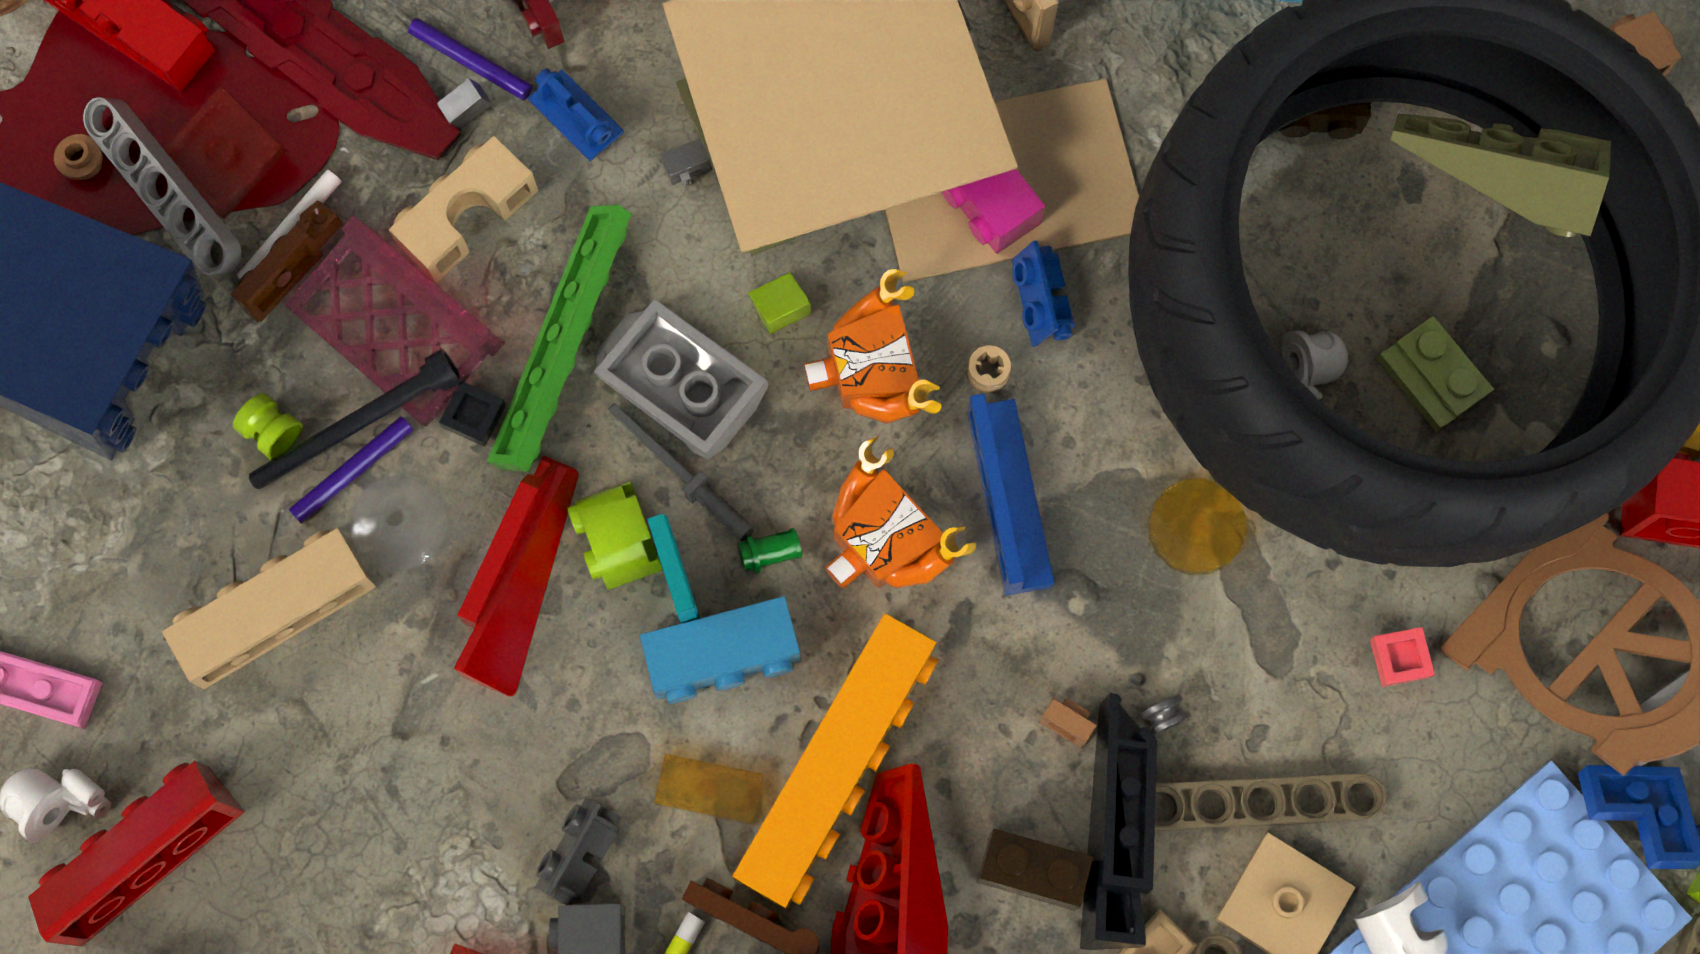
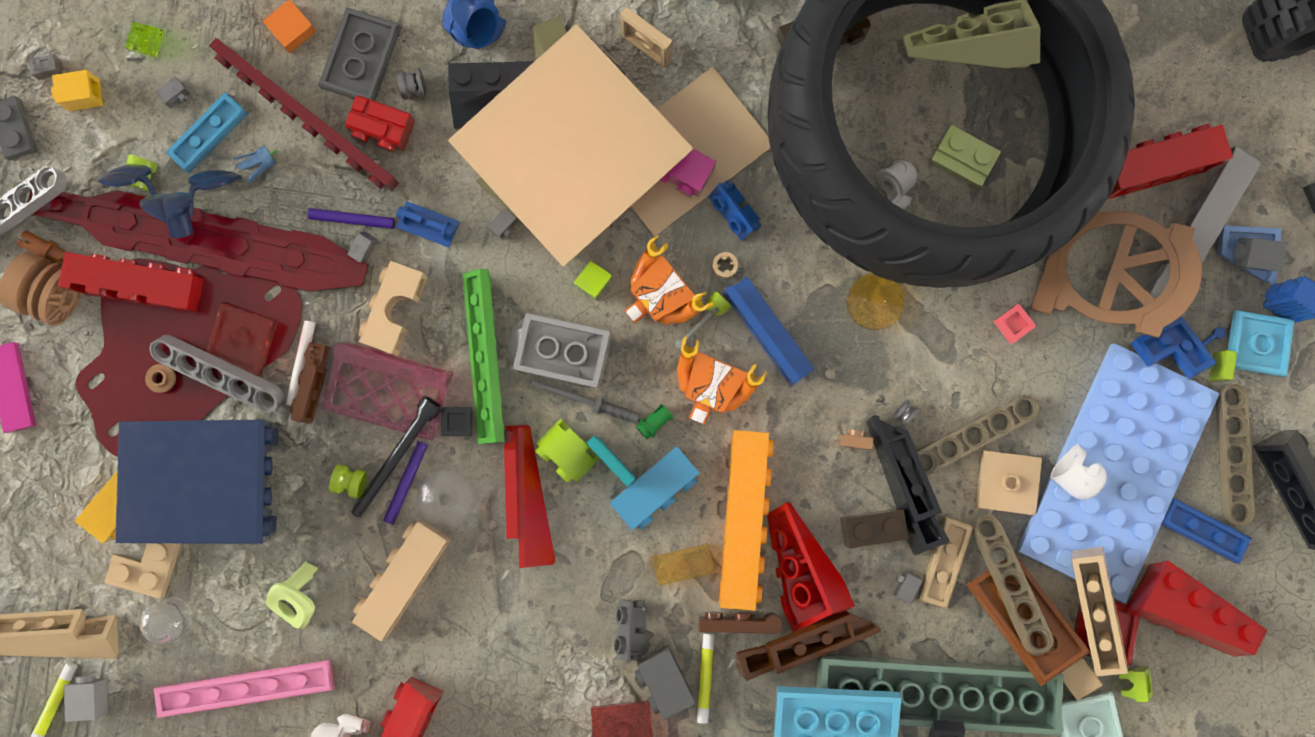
camera: 25 degrees left, 10 degrees up
(95, 545) = (289, 591): none -> yellowish green piece
(947, 423) = (719, 307): none -> hinge

